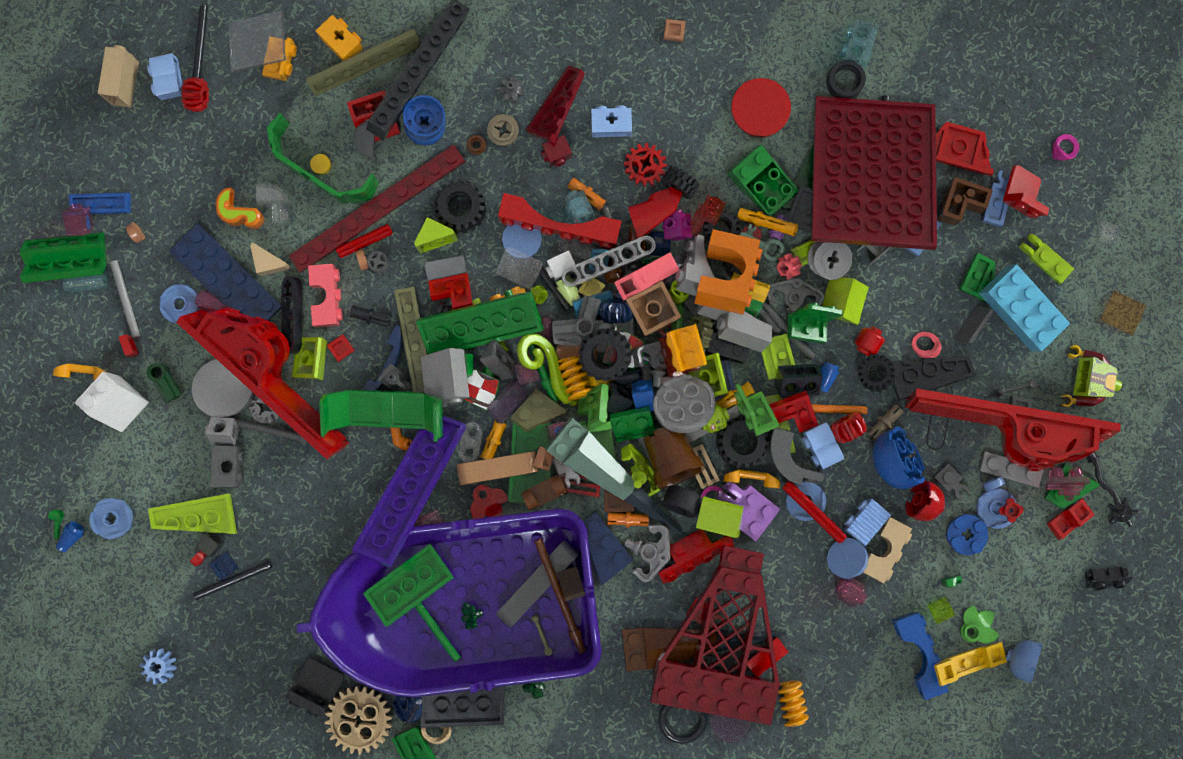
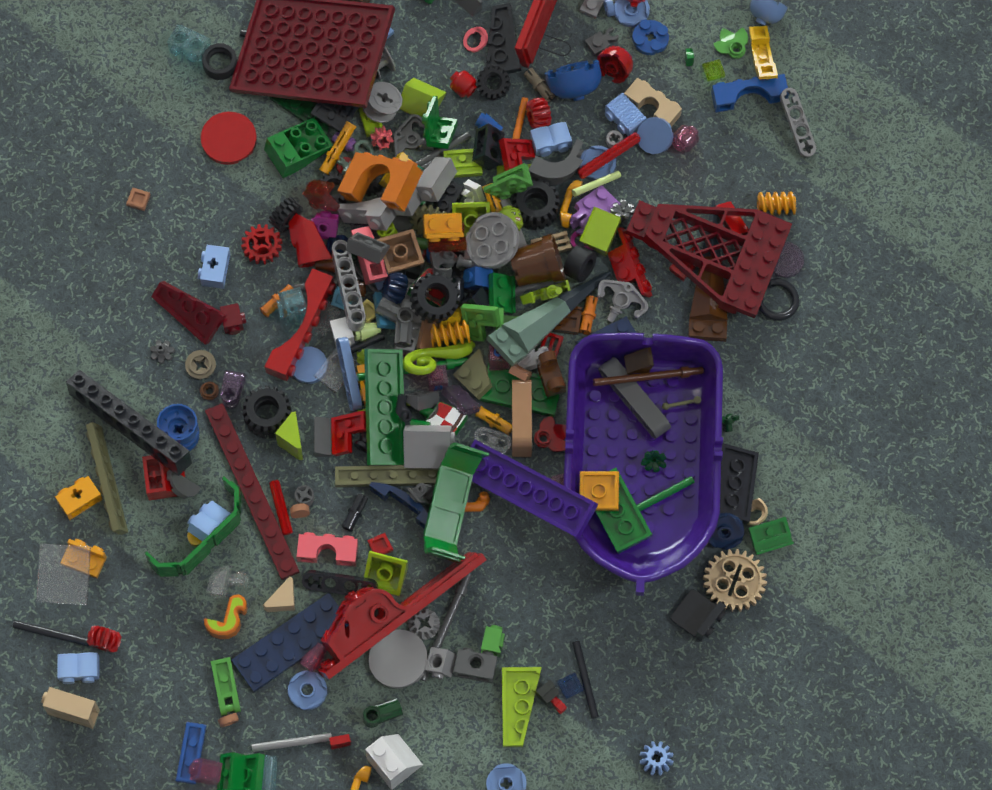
camera: 80 degrees left, 15 degrees down
(170, 223) = (225, 685): none -> bright green plate
(255, 480) = (493, 640): none -> bright green window
(332, 172) = (207, 520): none -> light blue brick
(423, 563) = (601, 488): none -> light orange tile
(478, 343) = (401, 408): none -> black arm
(484, 166) = (232, 385): none -> clear purple piece
(513, 281) = (349, 374): none -> medium blue beam
(649, 272) = (367, 247): none -> dark grey slope
(742, 372) = (473, 192): none -> white tile
(750, 537) = (623, 210): none -> dark grey plant
(779, 503) = (596, 183): none -> yellowish green bar
(843, 515) = (616, 134): none -> light grey bush
(895, 718) = (794, 123): none -> light grey beam

